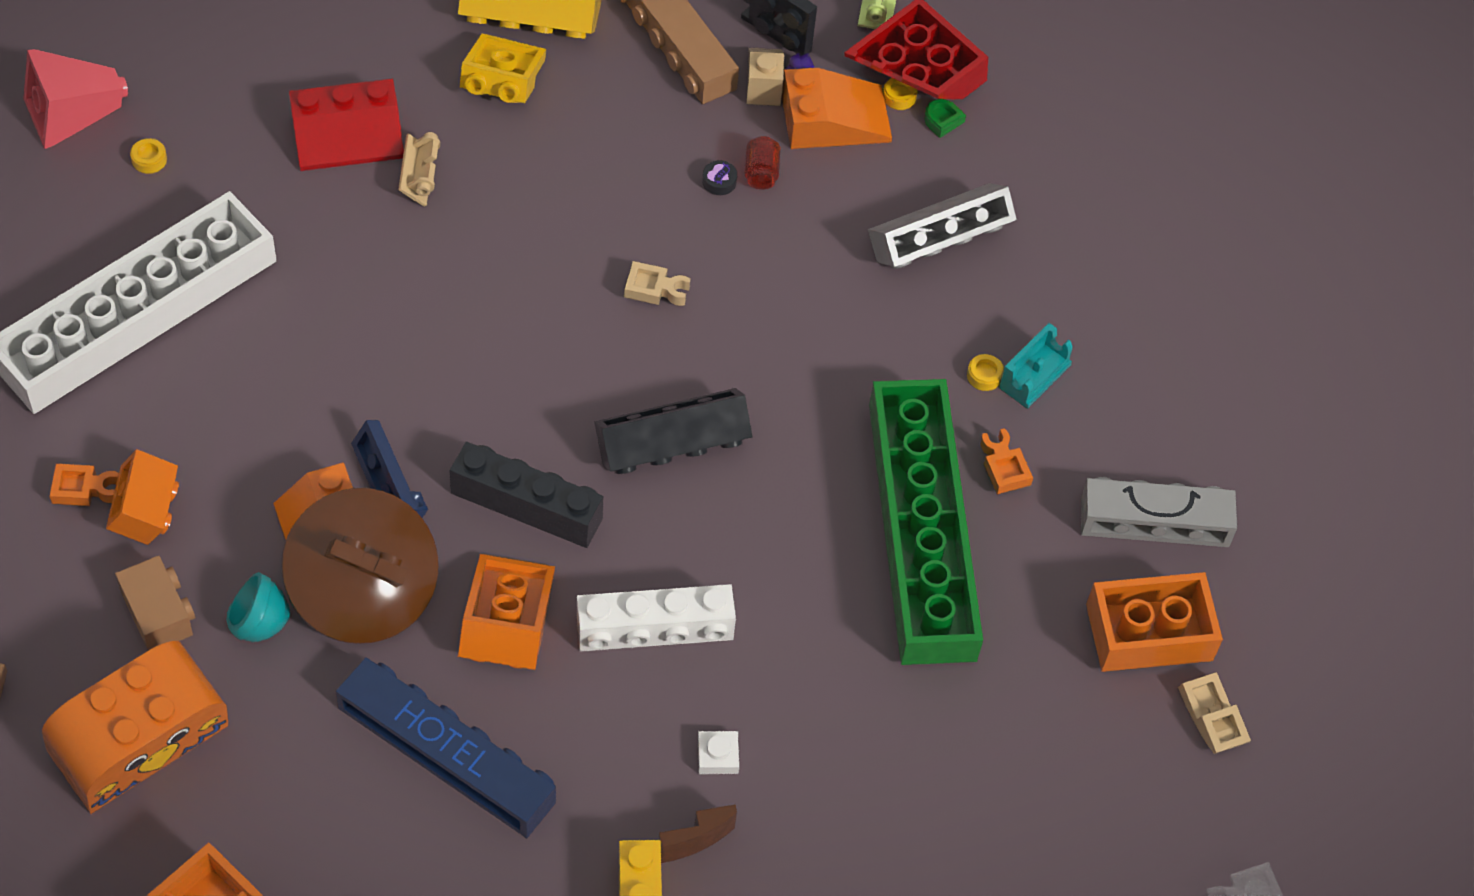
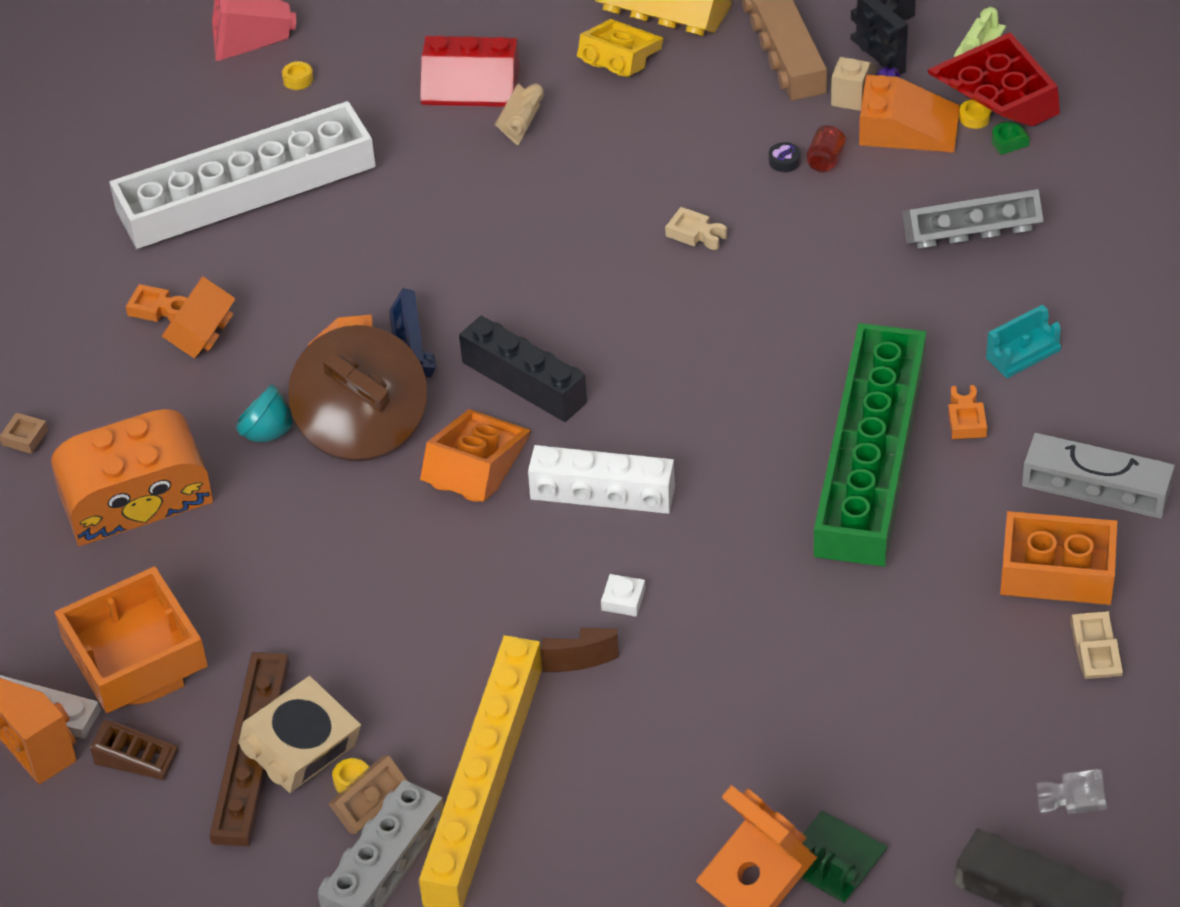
camera: 25 degrees right, 10 degrees down
(154, 602) = (182, 390): medium nougat brick -> none
(447, 746) = (387, 546): dark blue brick -> none
(673, 430) = (668, 338): black brick -> none
(985, 372) = (973, 342): yellow tile -> none

